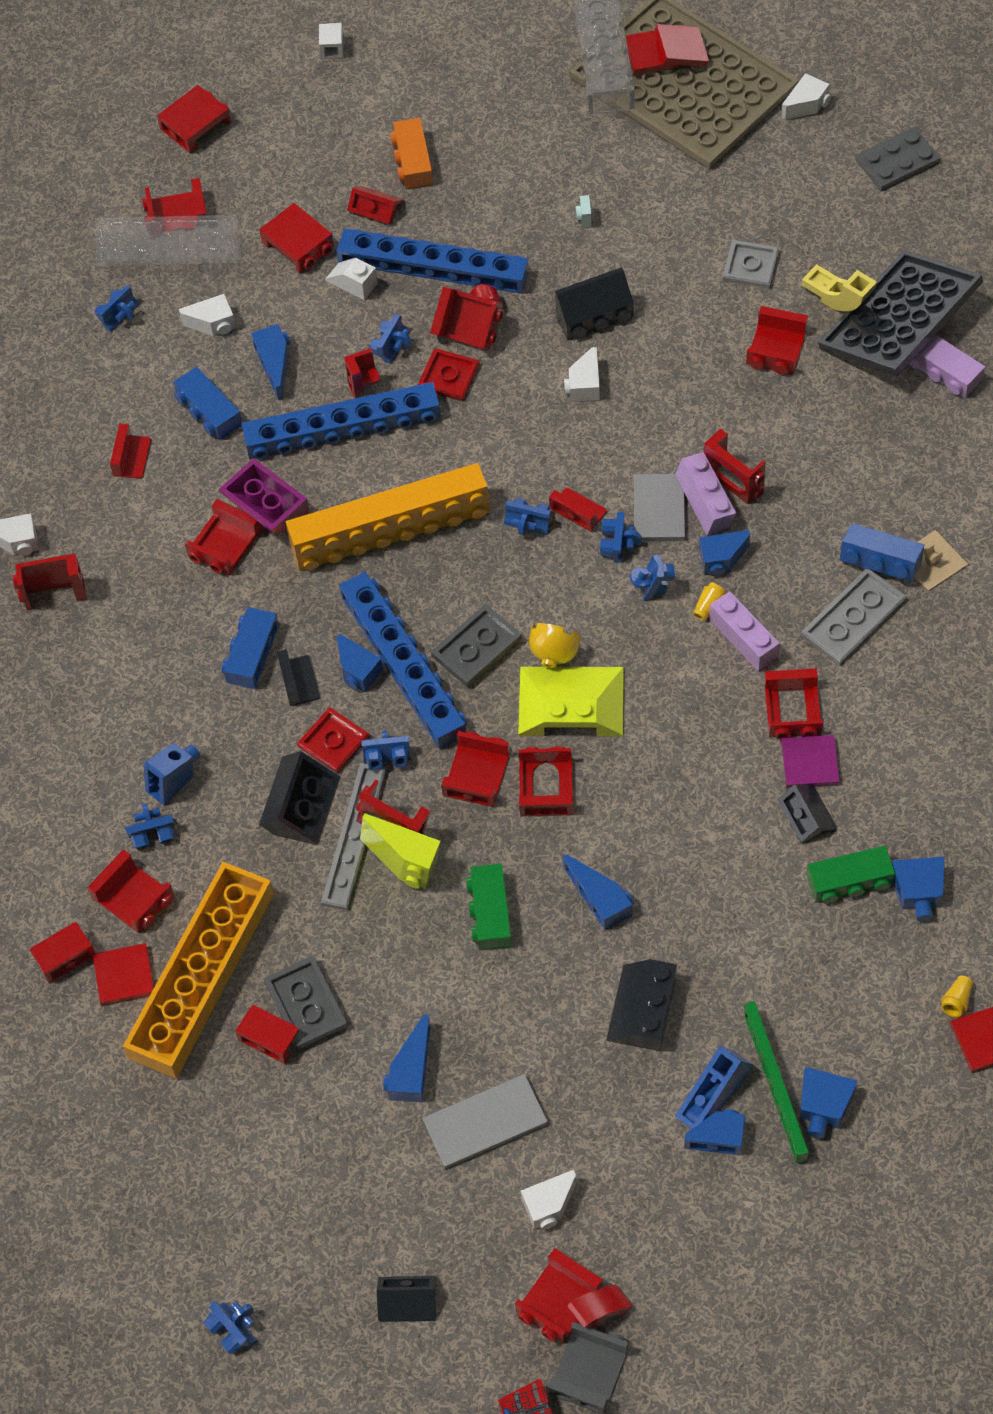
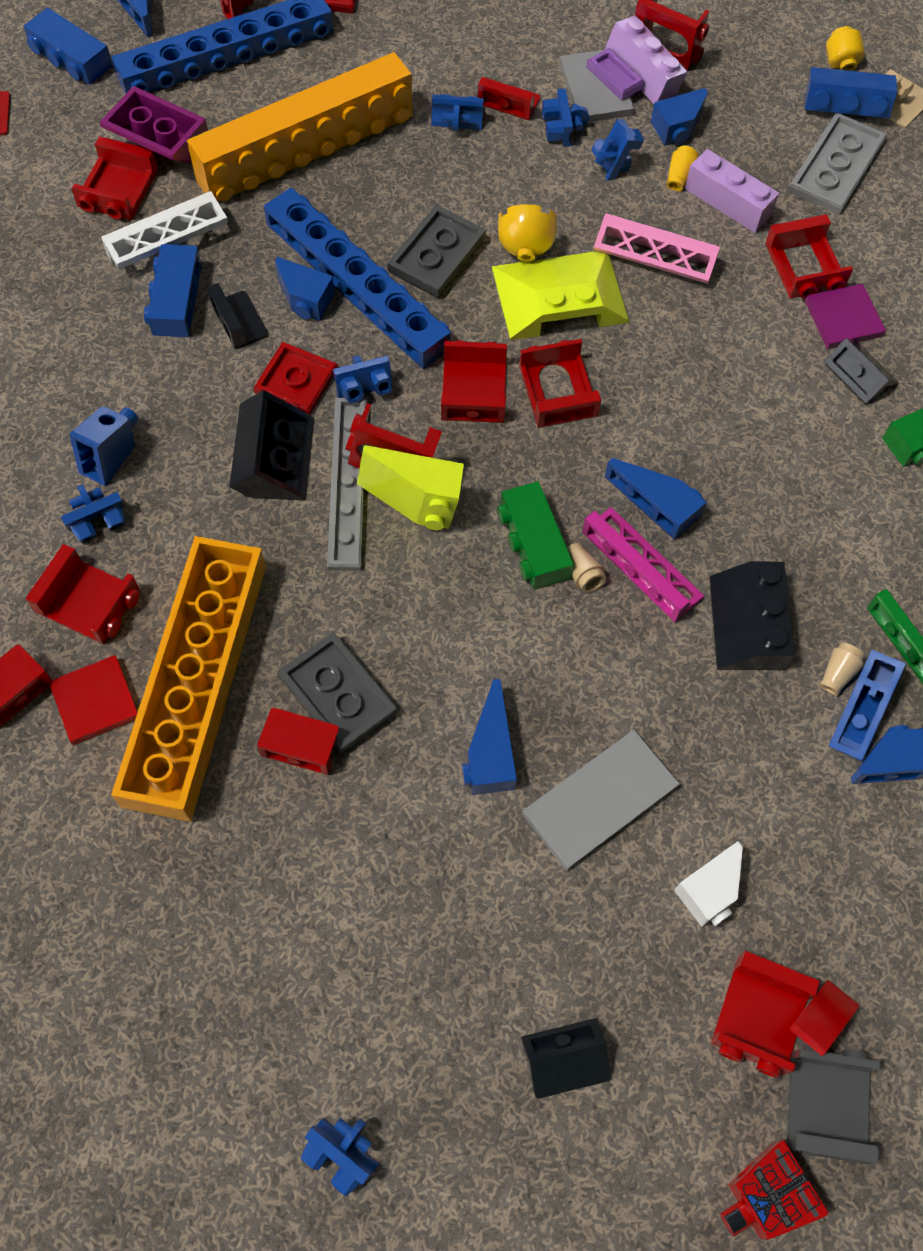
camera: 20 degrees left, 5 degrees up
(253, 589) = (166, 227): none -> white fence
(522, 941) = (586, 572): none -> tan cone
(563, 947) = (638, 567): none -> dark pink fence
(671, 670) = (658, 241): none -> bright pink fence
(676, 501) = (615, 74): none -> medium lavender tile
(700, 1057) = (842, 667): none -> tan cone
(895, 506) = (845, 48): none -> yellow head

